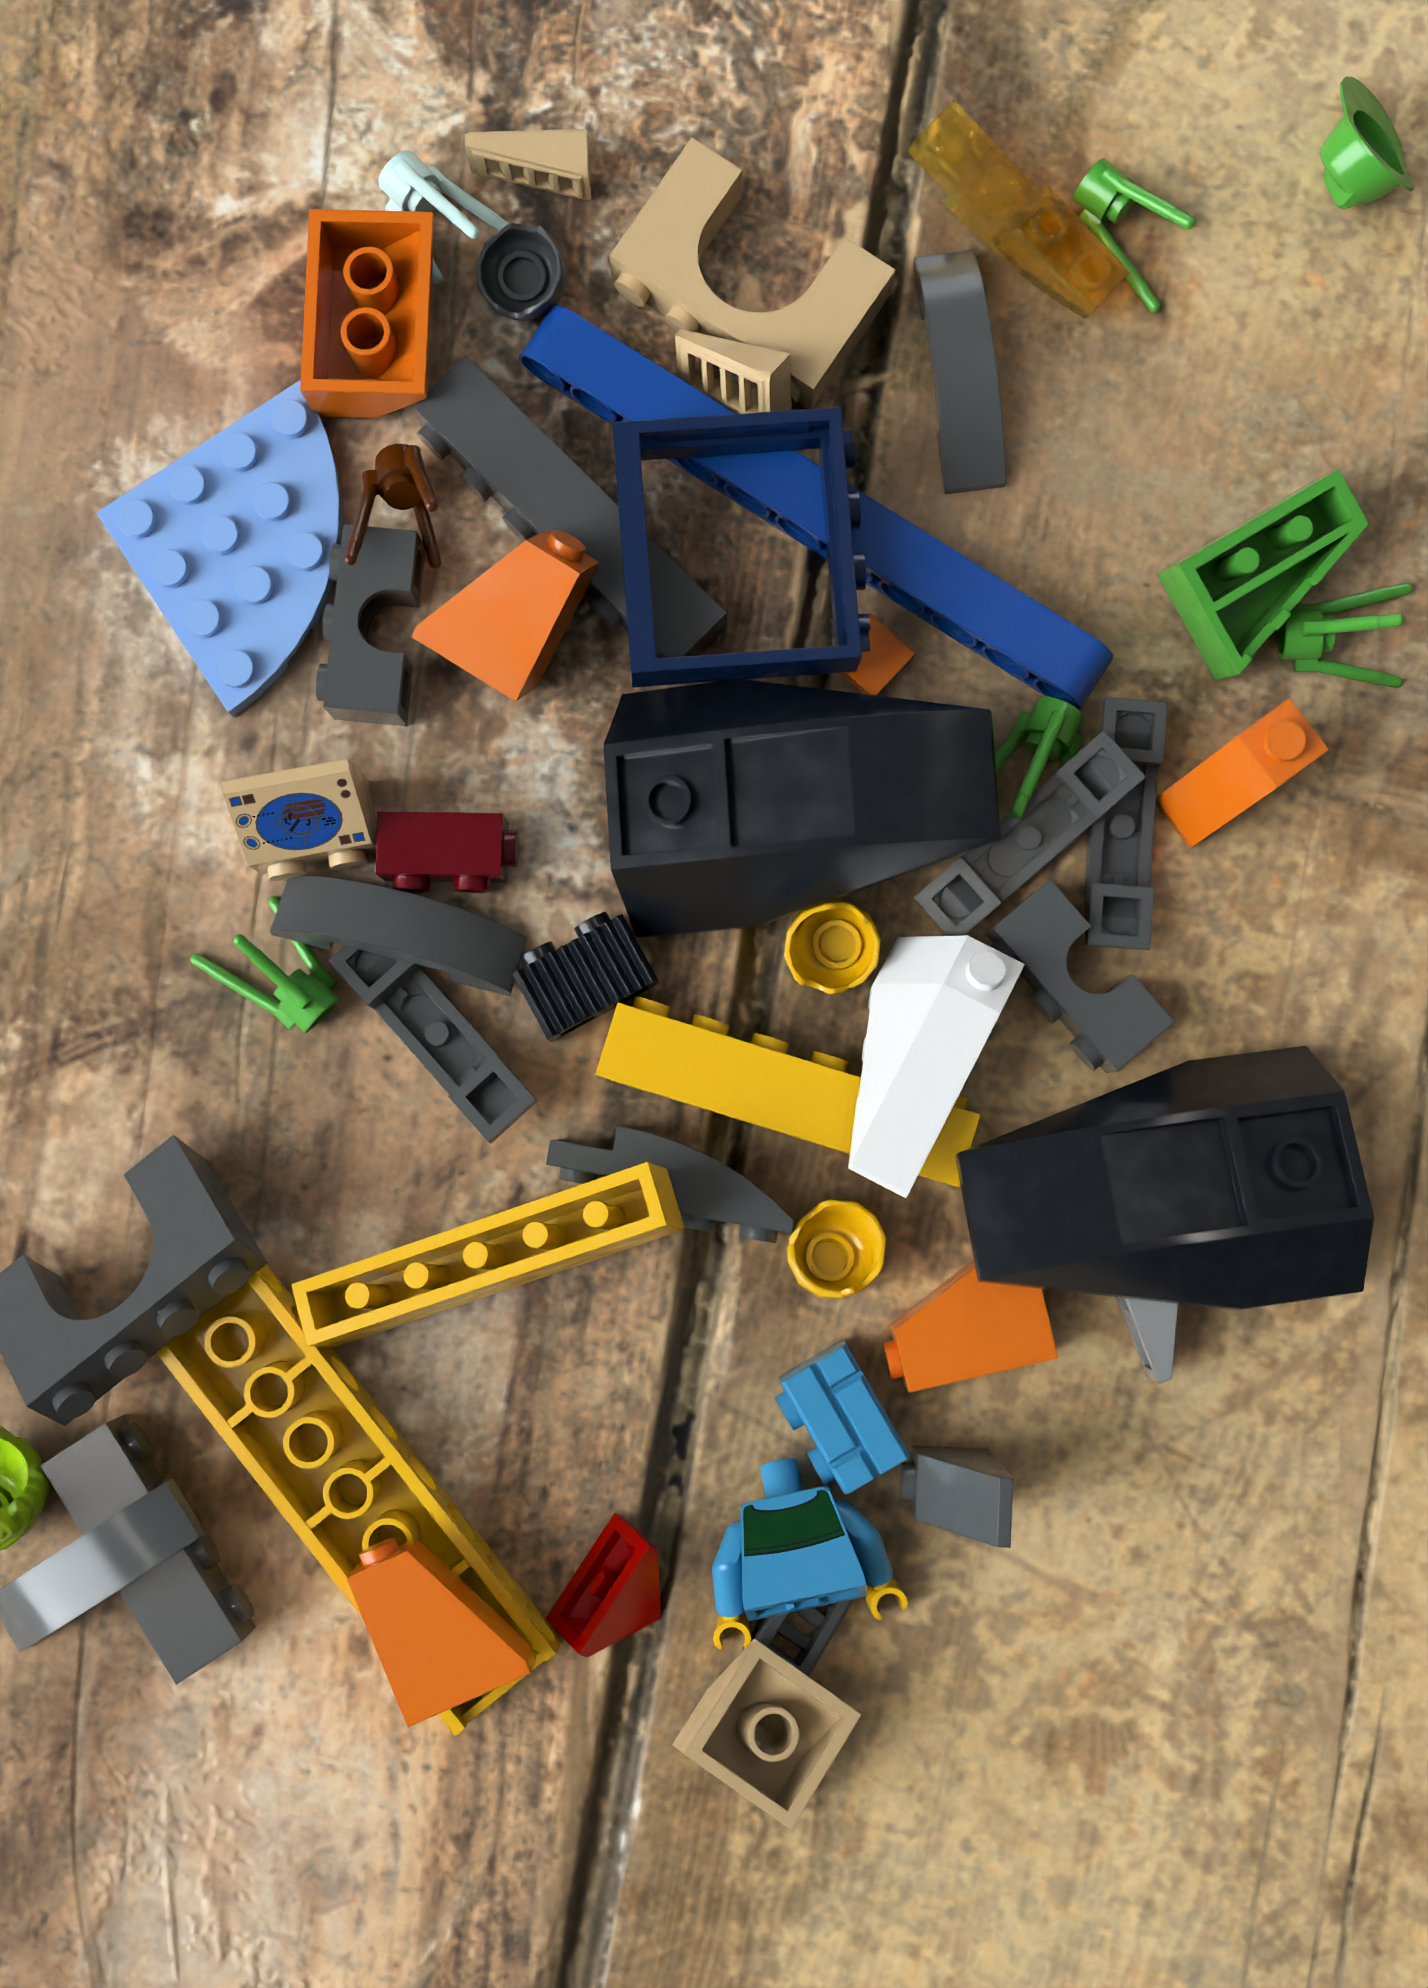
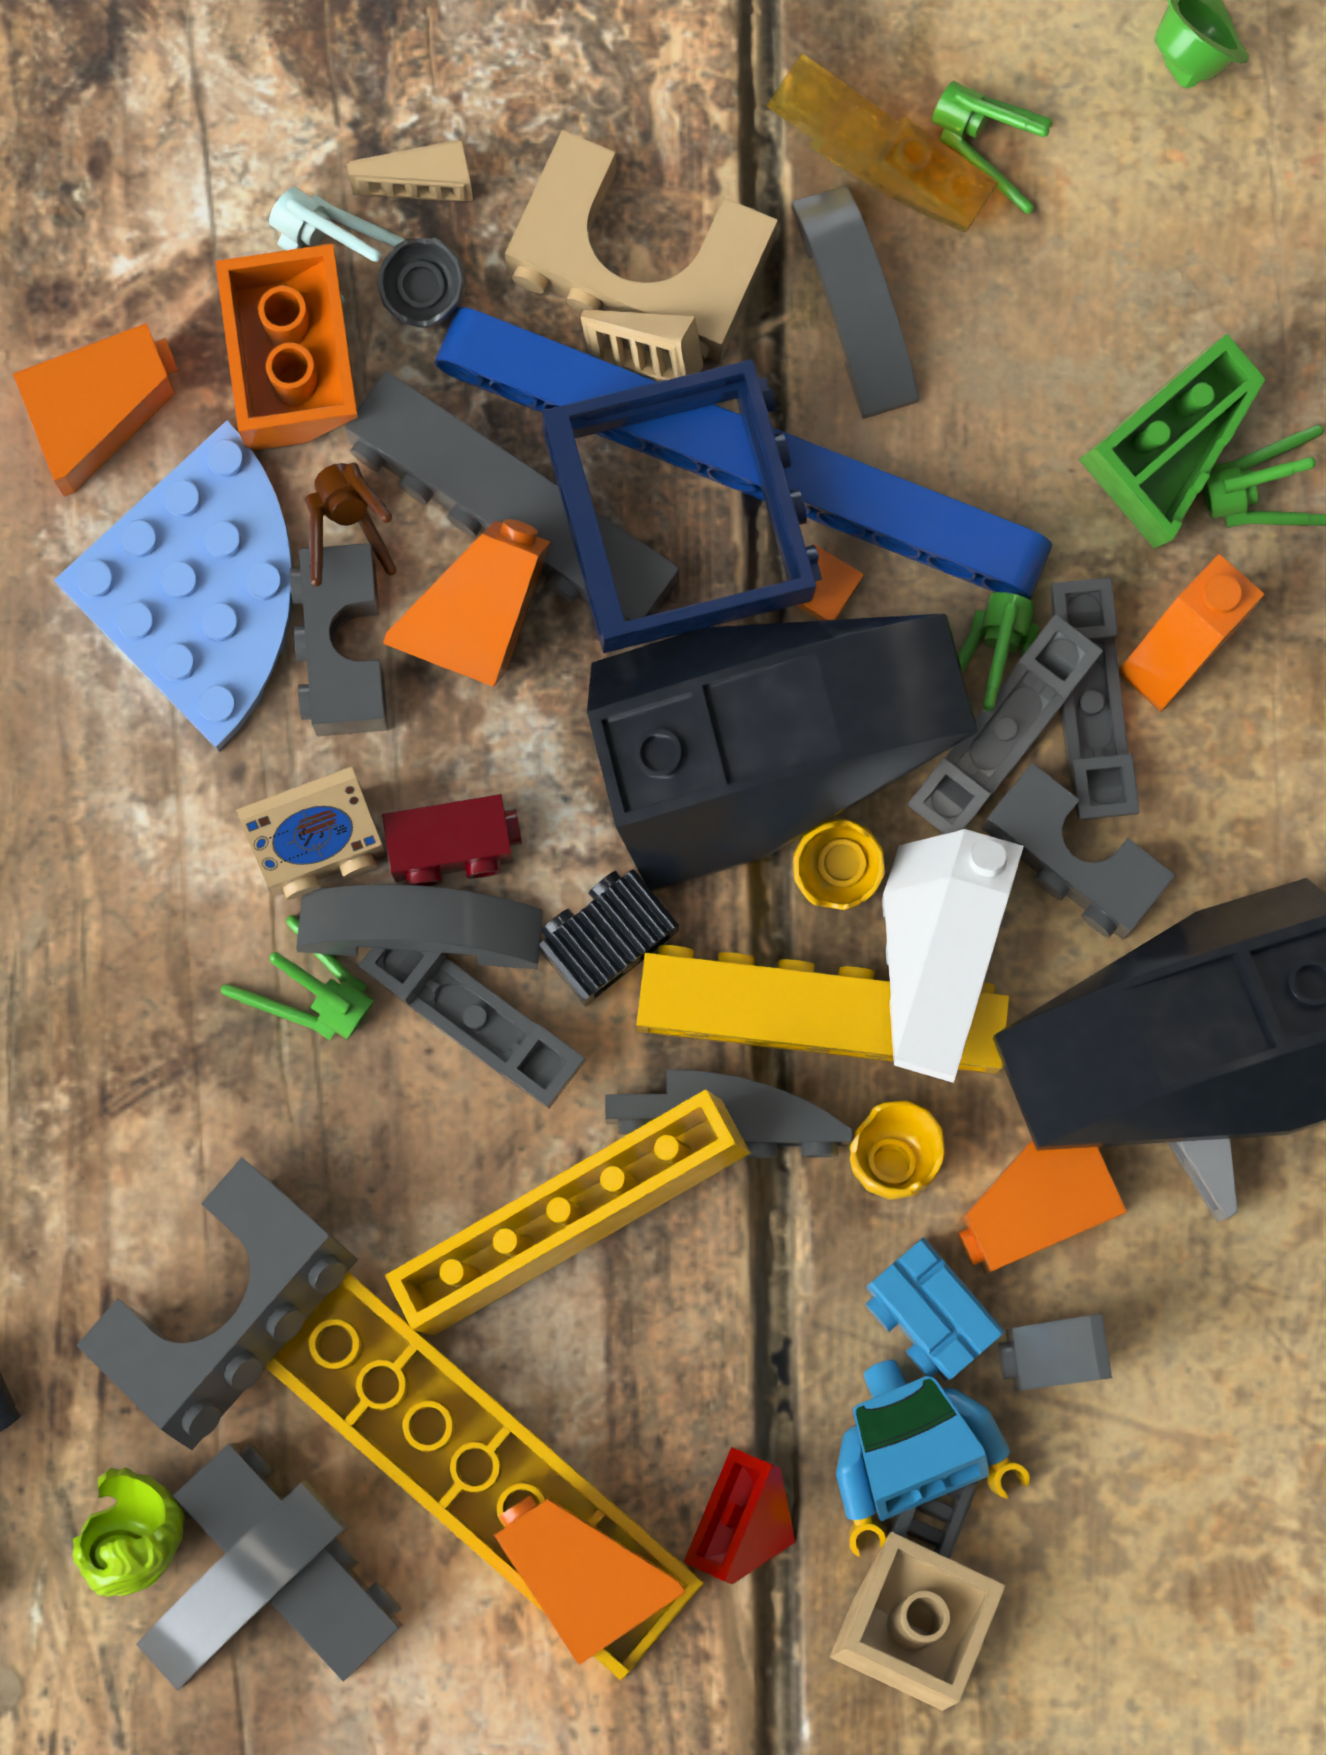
camera: 15 degrees left, 5 degrees down
(168, 337) = (95, 400): none -> orange slope

